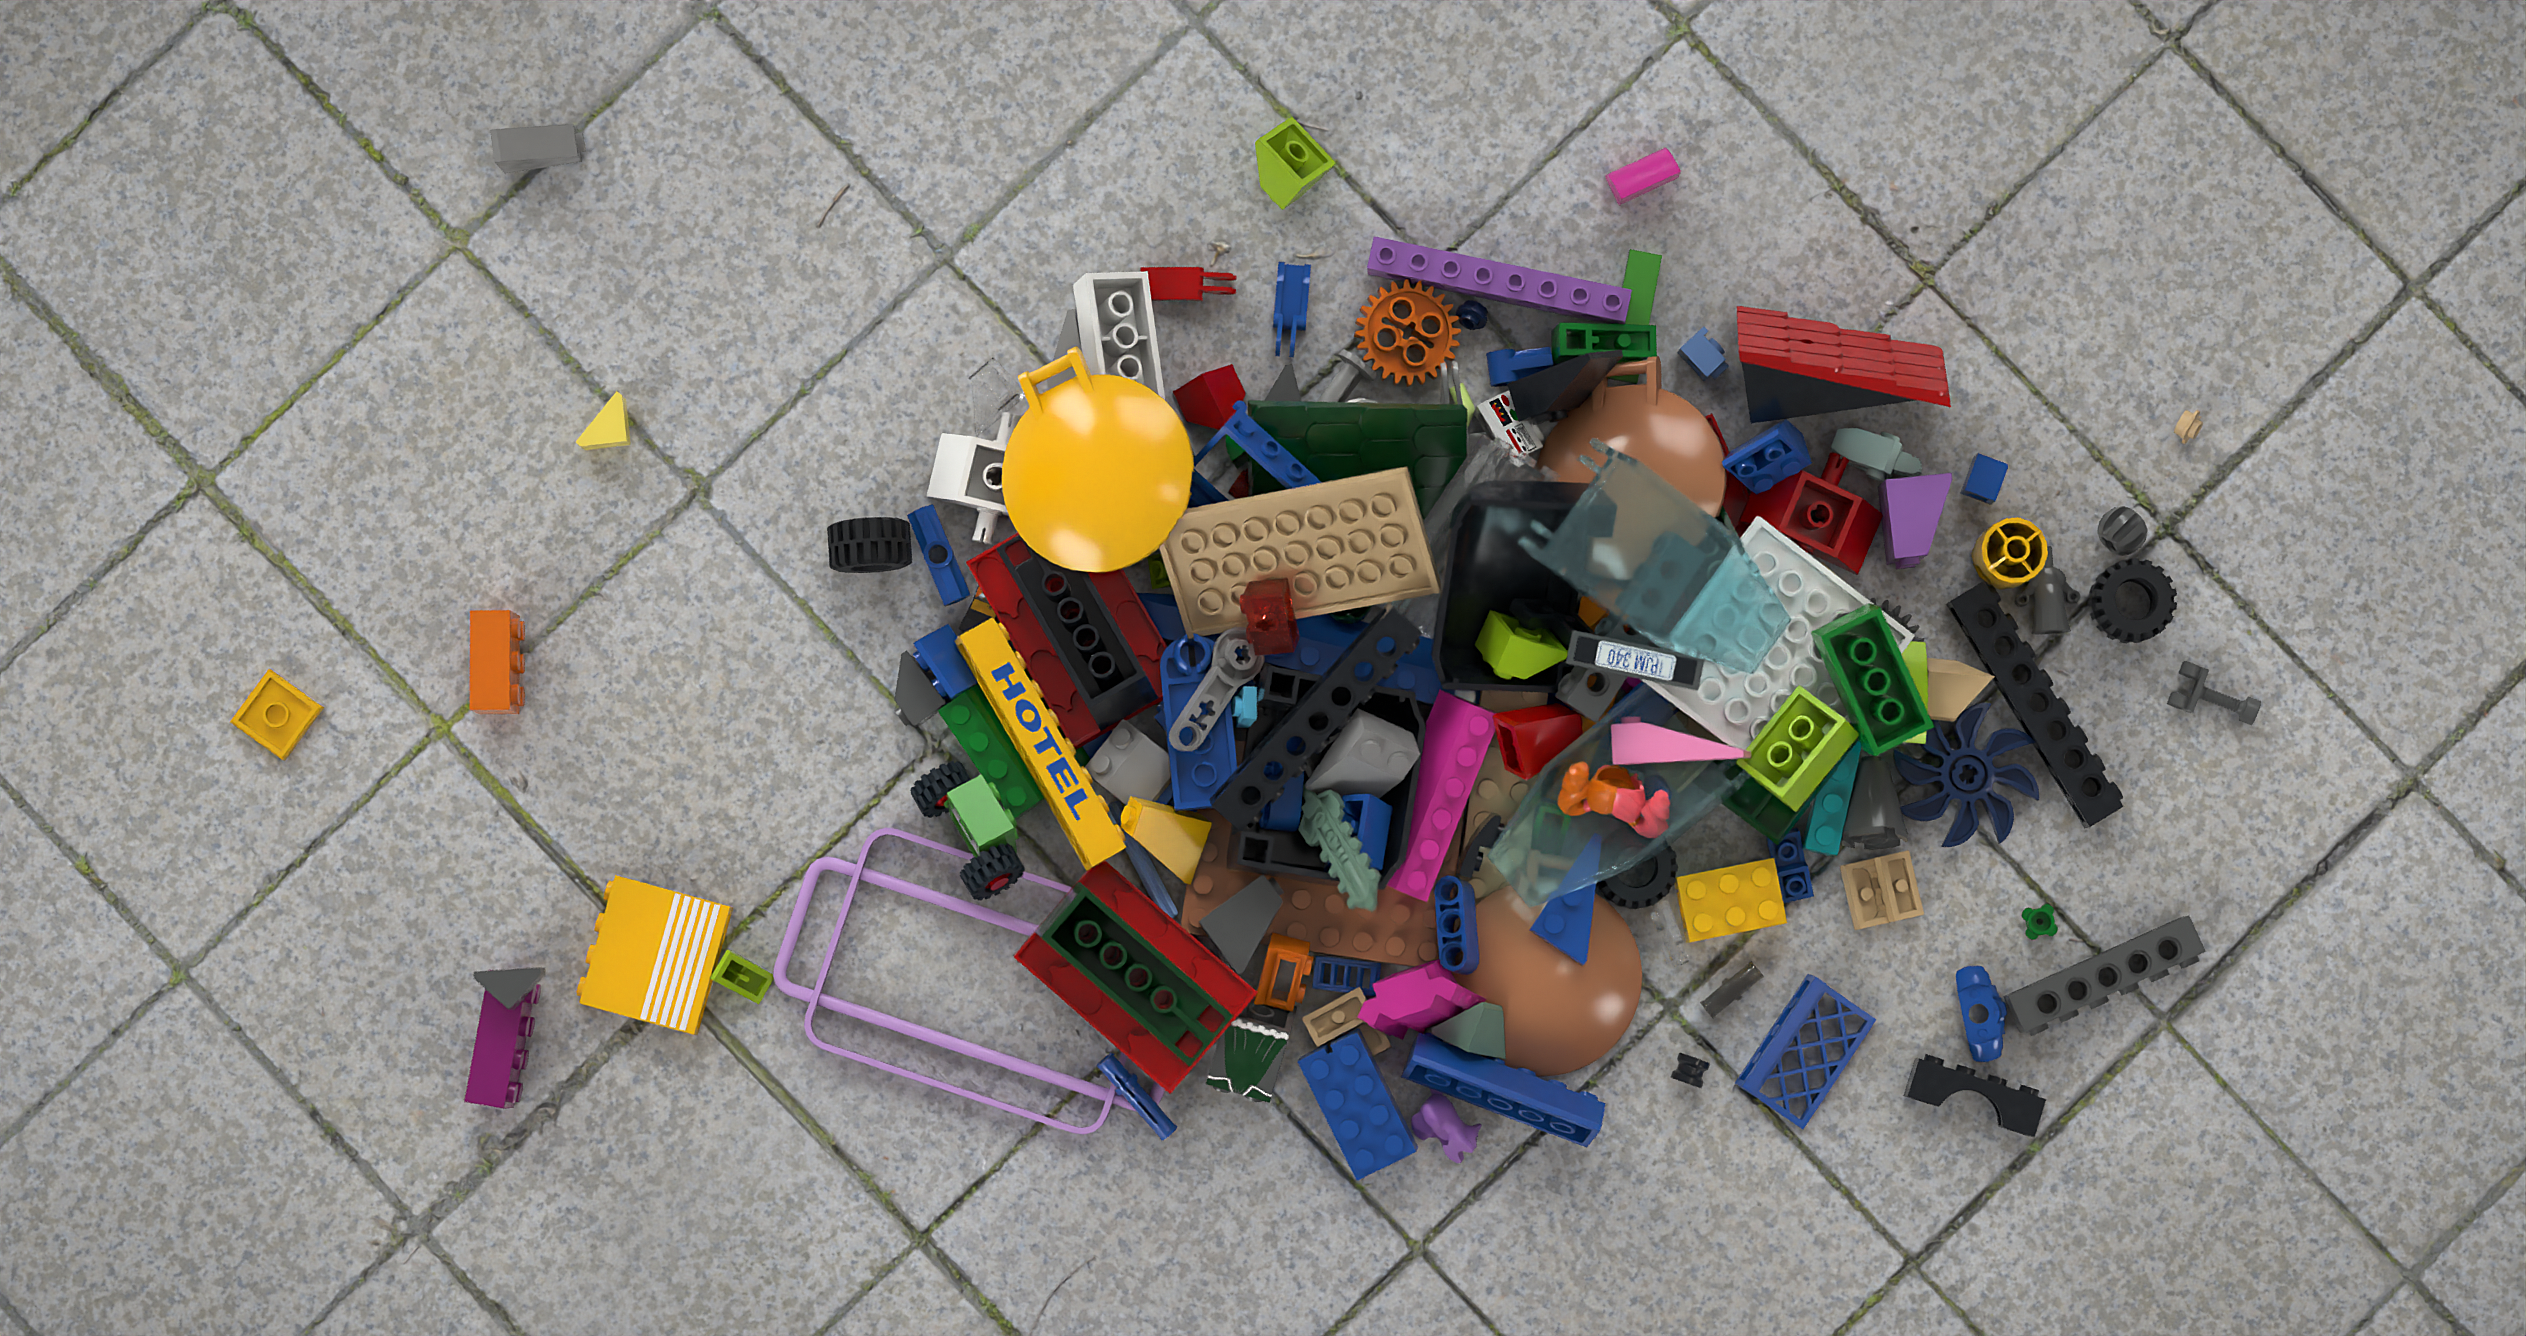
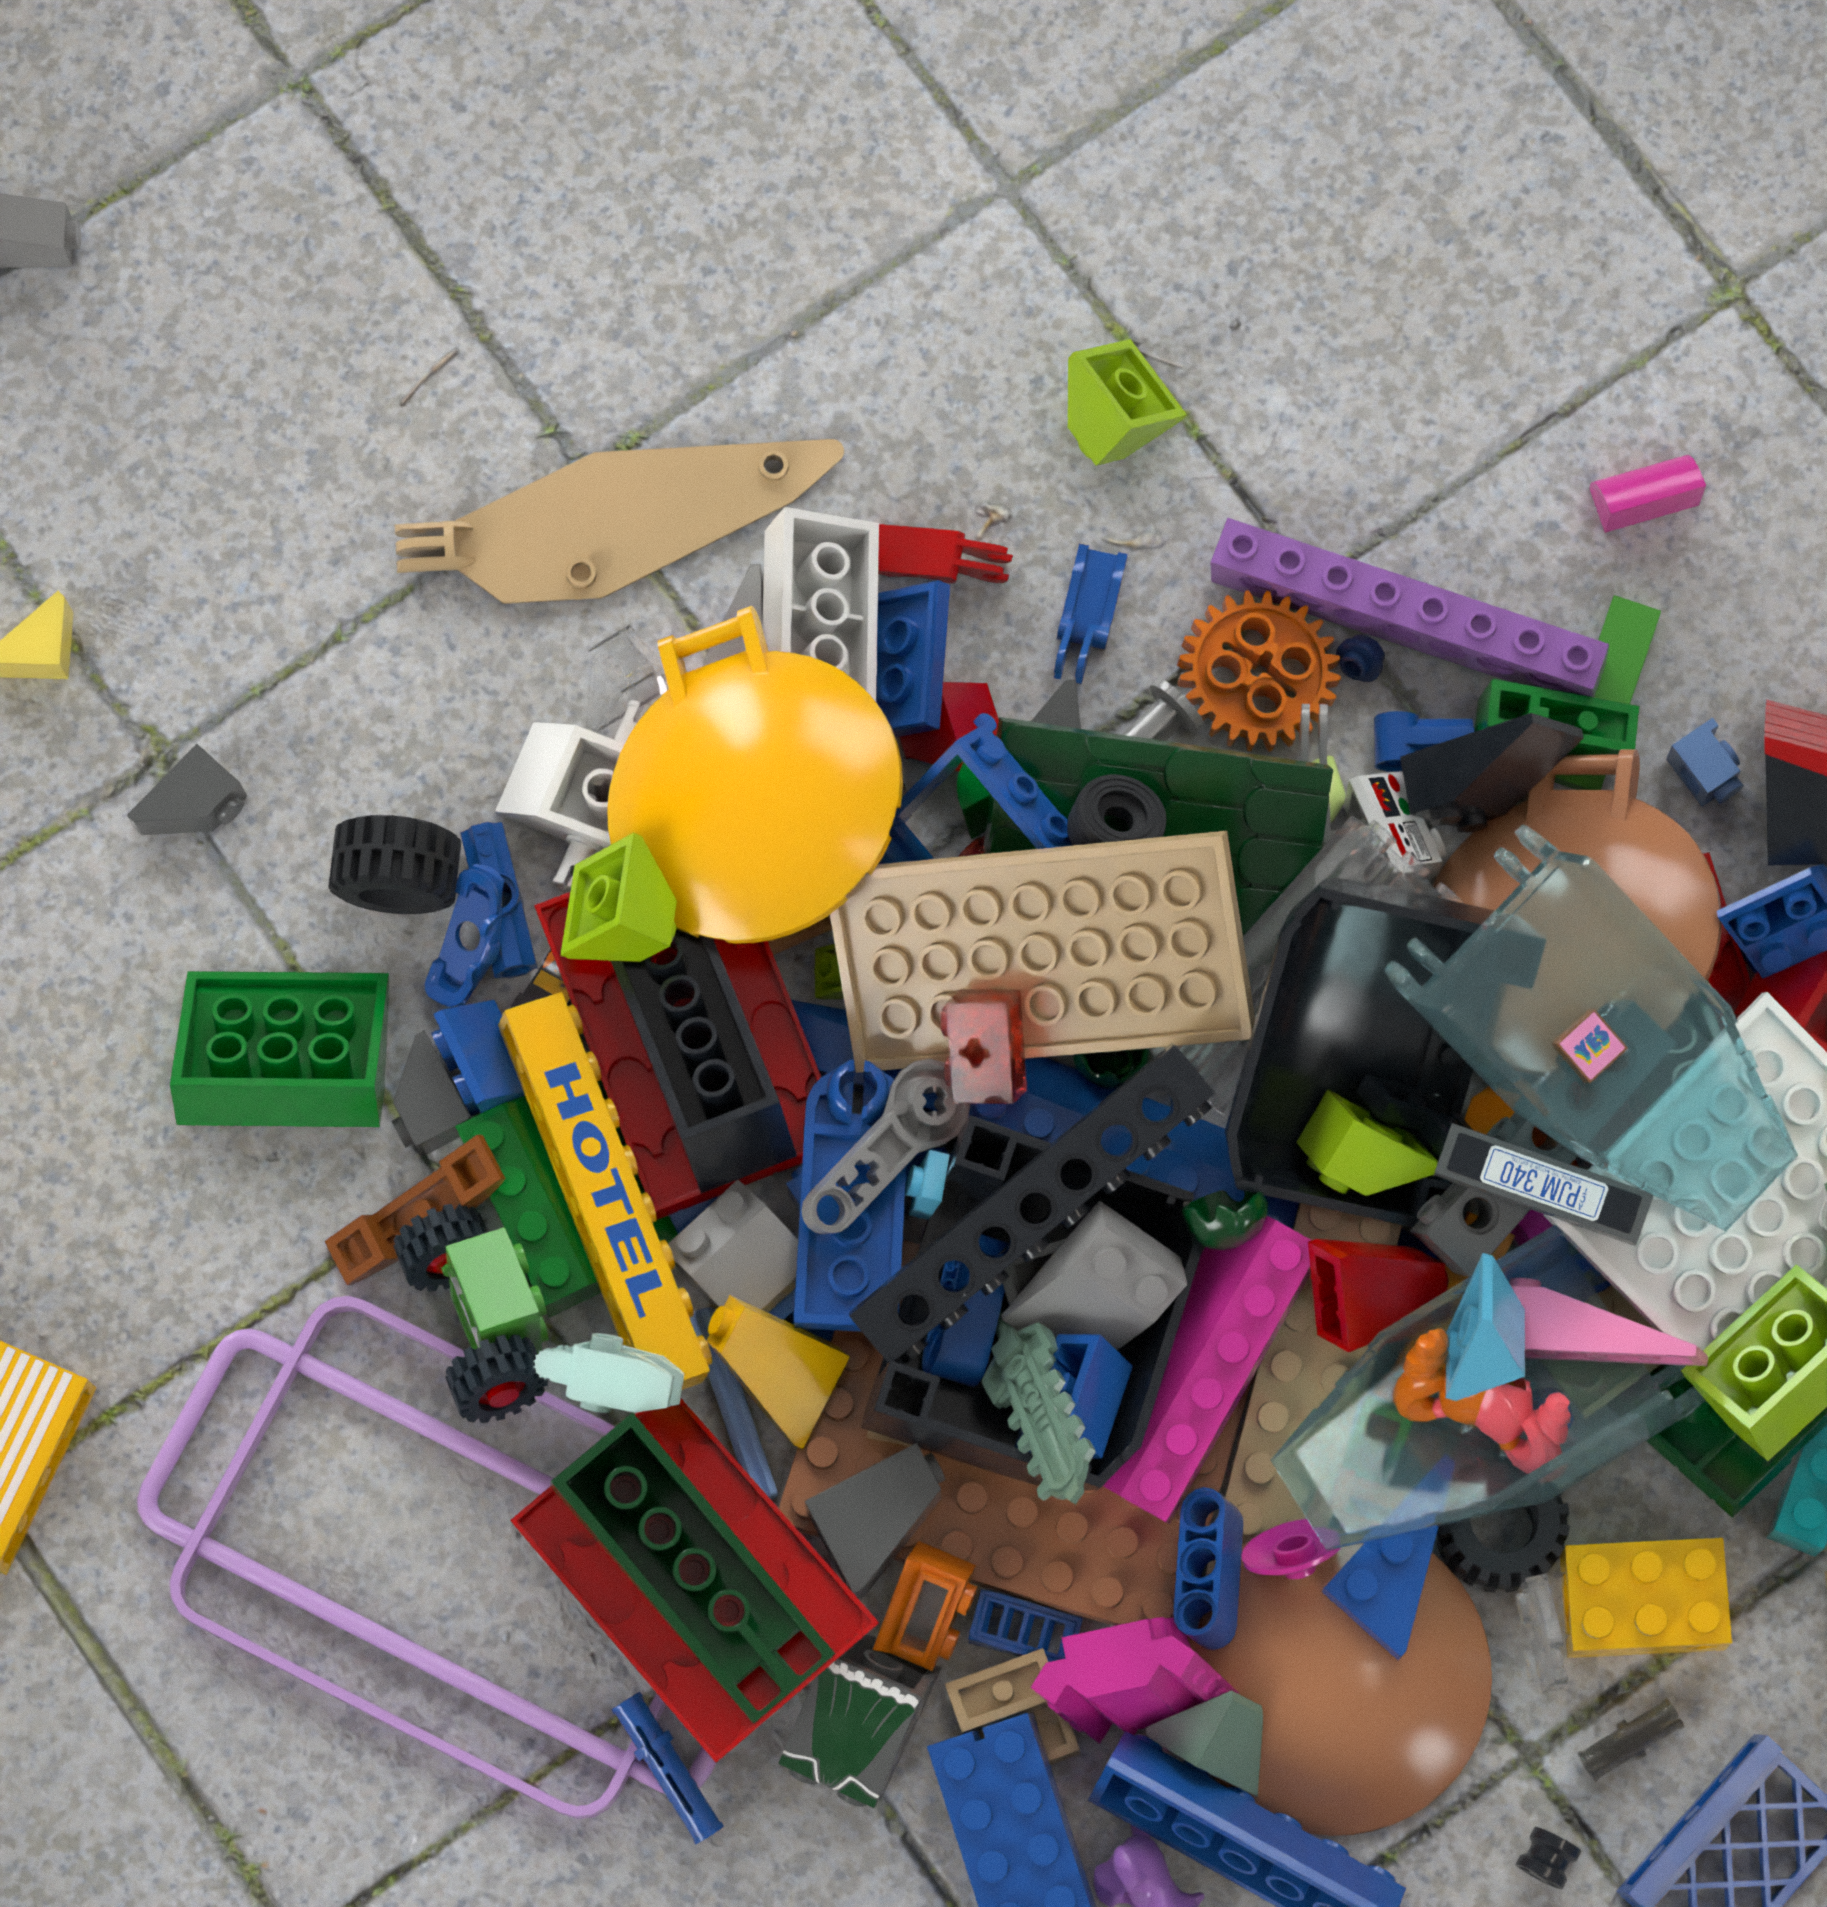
camera: 15 degrees right, 10 degrees down
(727, 515) = (190, 798): none -> dark grey slope
(742, 976) = (88, 1491): lime slope -> none
(815, 672) = (281, 1049): none -> green slope
(894, 788) = (367, 1242): none -> dark orange slope
(920, 605) = (458, 969): none -> blue piece
(973, 286) = (614, 518): none -> tan wing
(1022, 558) = (619, 905): none -> lime slope
(1066, 861) = (612, 1375): none -> light aqua hinge
(1182, 358) = (912, 656): none -> blue tile
(1334, 445) = (1118, 797): none -> black tyre
(1438, 708) = (1223, 1222): none -> dark green hair
(1484, 836) = (1270, 1436): black slope -> none
(1503, 908) = (1286, 1550): none -> dark pink dish
(1611, 761) = (1485, 1334): none -> medium azure slope
(1652, 569) = (1589, 1046): none -> tile
(1791, 867) = (1748, 1559): blue slope -> none

